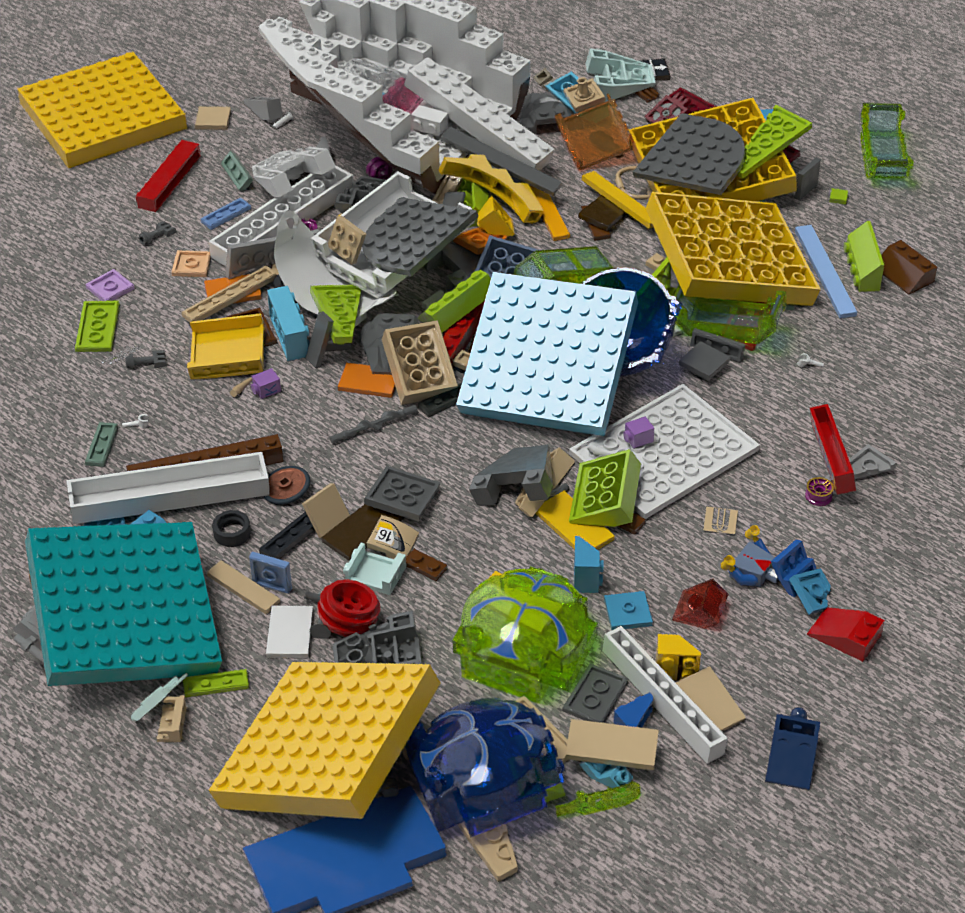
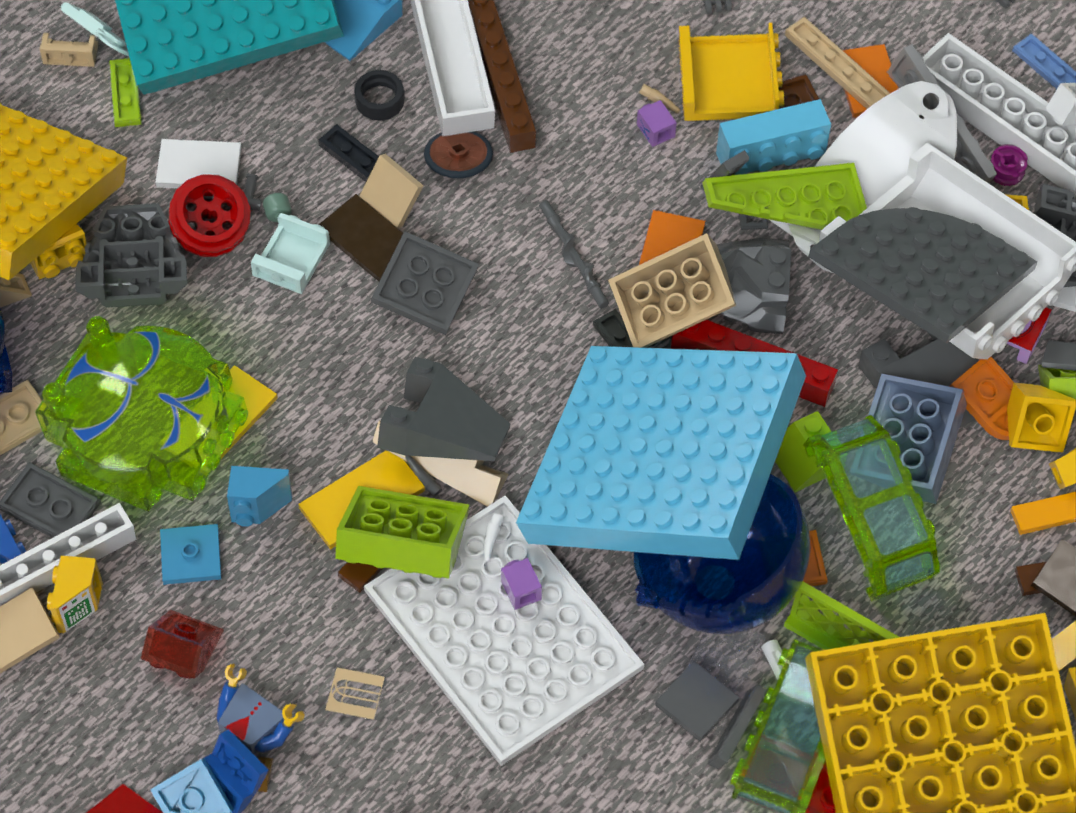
camera: 90 degrees right, 15 degrees up
(191, 263) = (925, 26): light nougat tile -> none
(243, 587) = (279, 114): tan tile -> none
(270, 572) = (281, 131): medium blue tile -> none
(333, 575) = (276, 204): none -> sand green piece
(346, 240) = (925, 190): tan plate -> none
(392, 537) = (346, 274): tan slope -> none
(425, 564) = (299, 313): reddish brown plate -> none
(432, 299) = (849, 333): white piece -> none
(459, 301) = (822, 353): lime slope -> none

